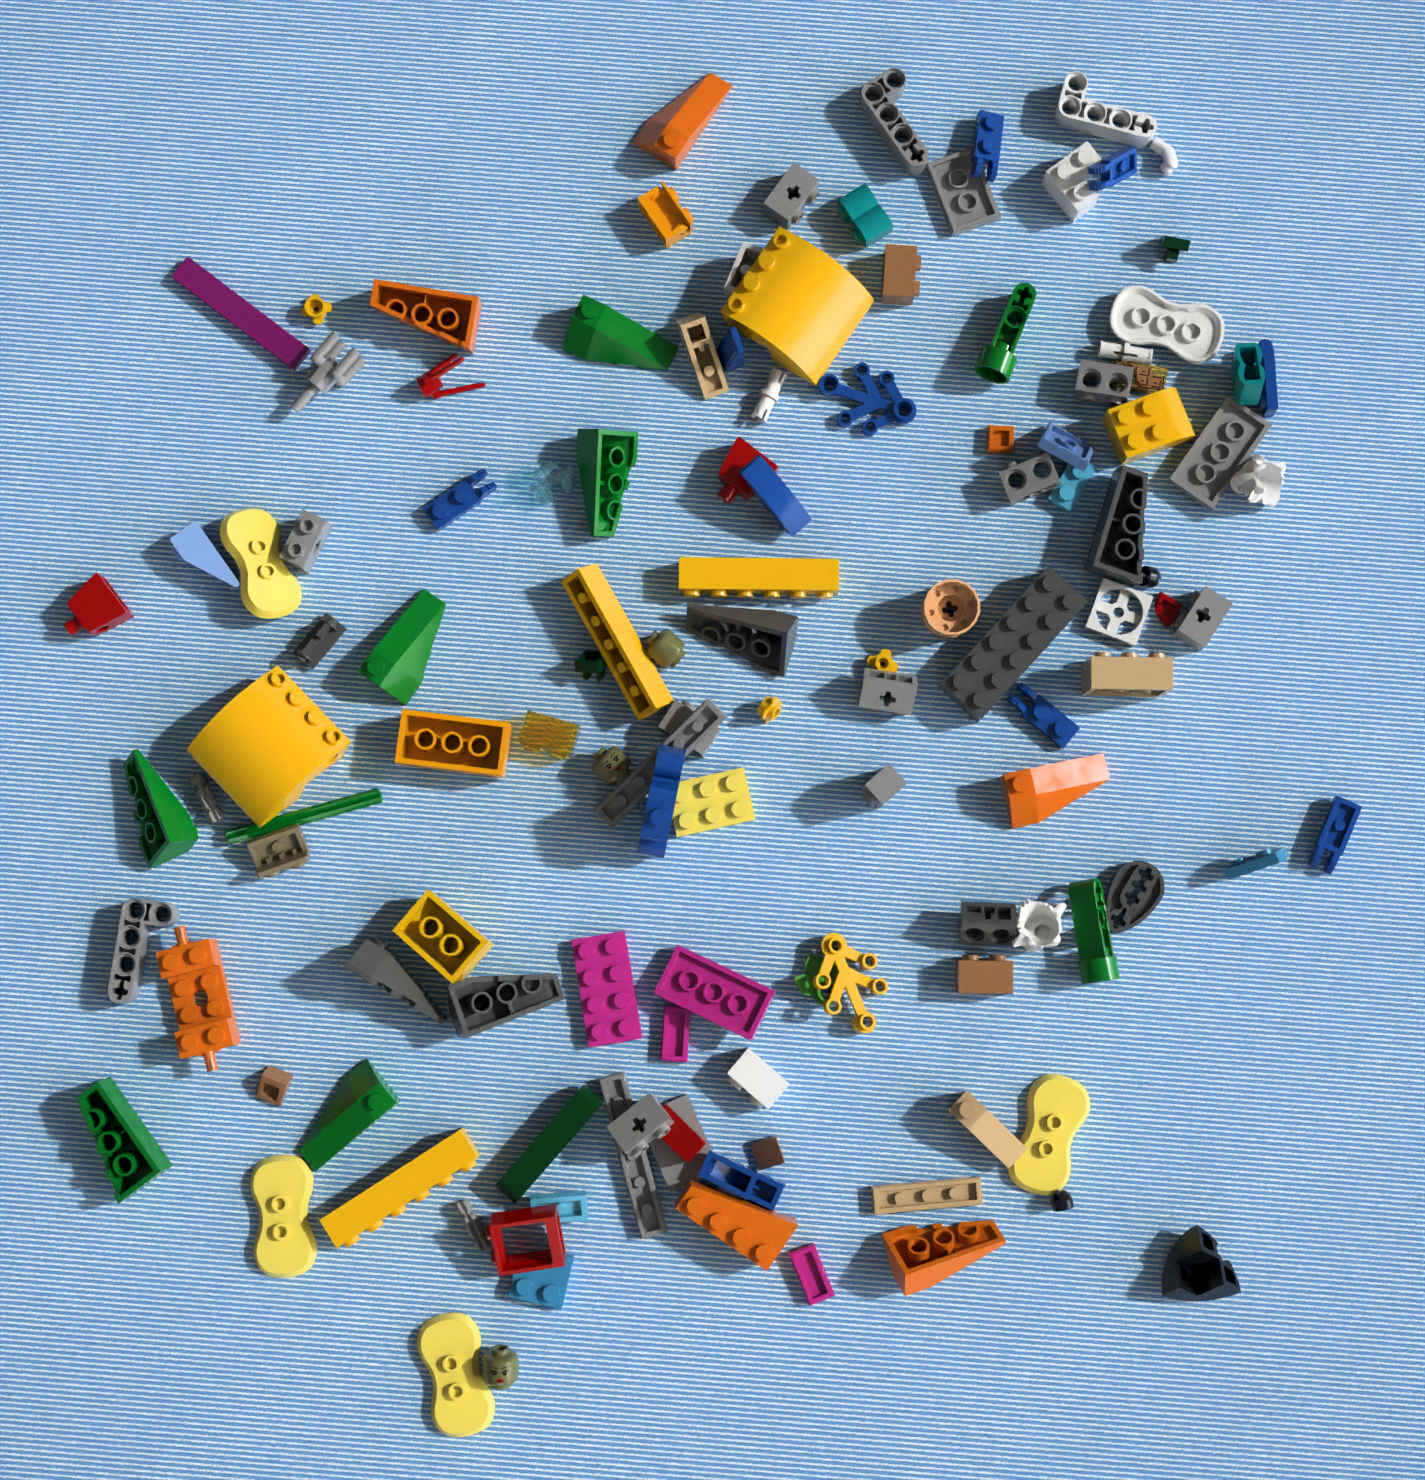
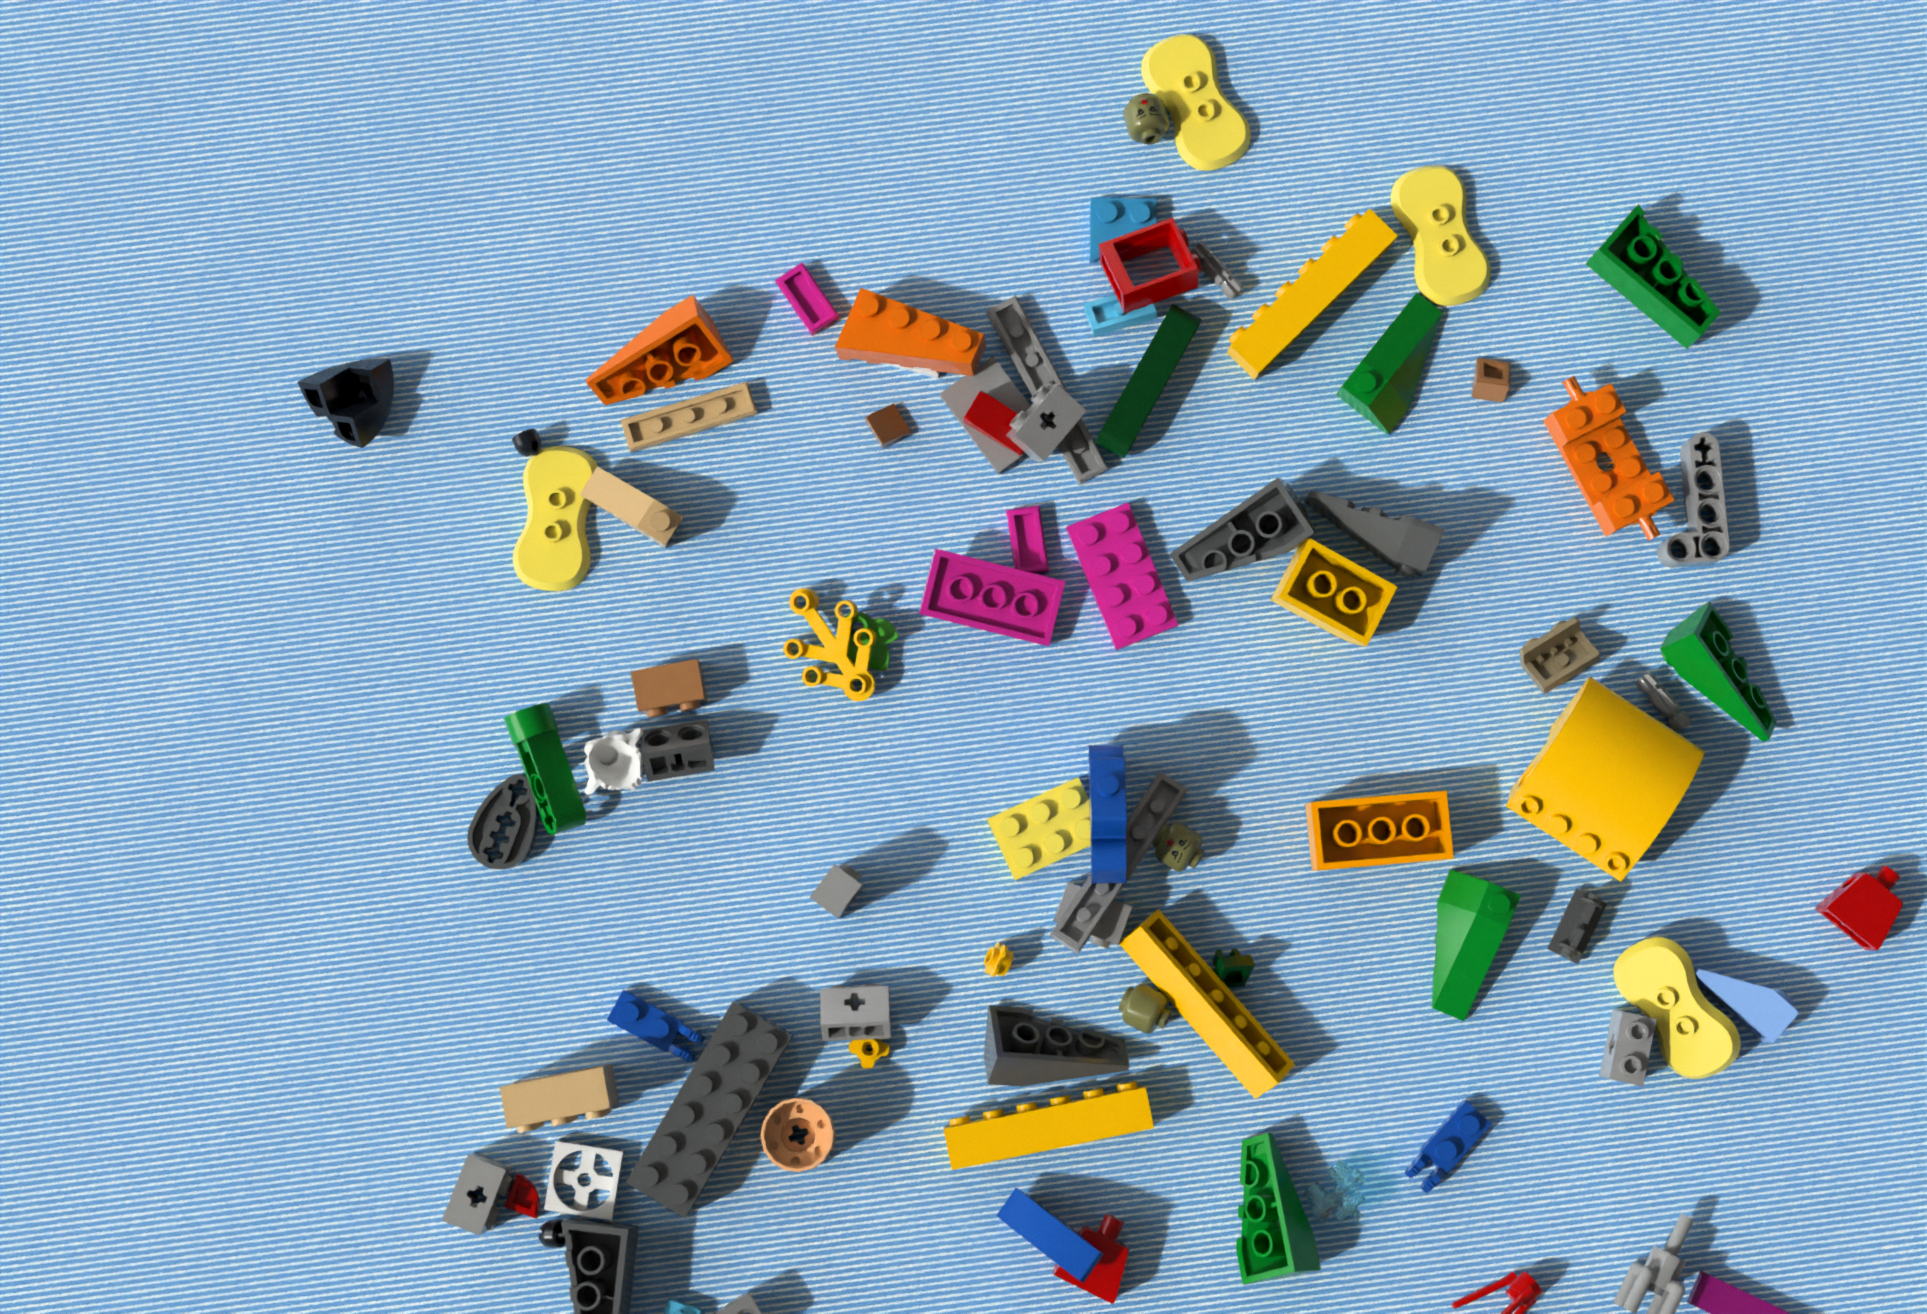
camera: 165 degrees right, 0 degrees up
(306, 815) = (1536, 706): green axle -> none
(550, 735) = (1263, 868): clear yellow brick -> none
(741, 1180) = (911, 386): blue slope -> none
(757, 1078) = (918, 507): white brick -> none
(1045, 789) = (637, 931): orange wedge -> none
(1264, 859) = (353, 898): dark azure wing -> none
(1335, 832) = (267, 956): blue hinge -> none

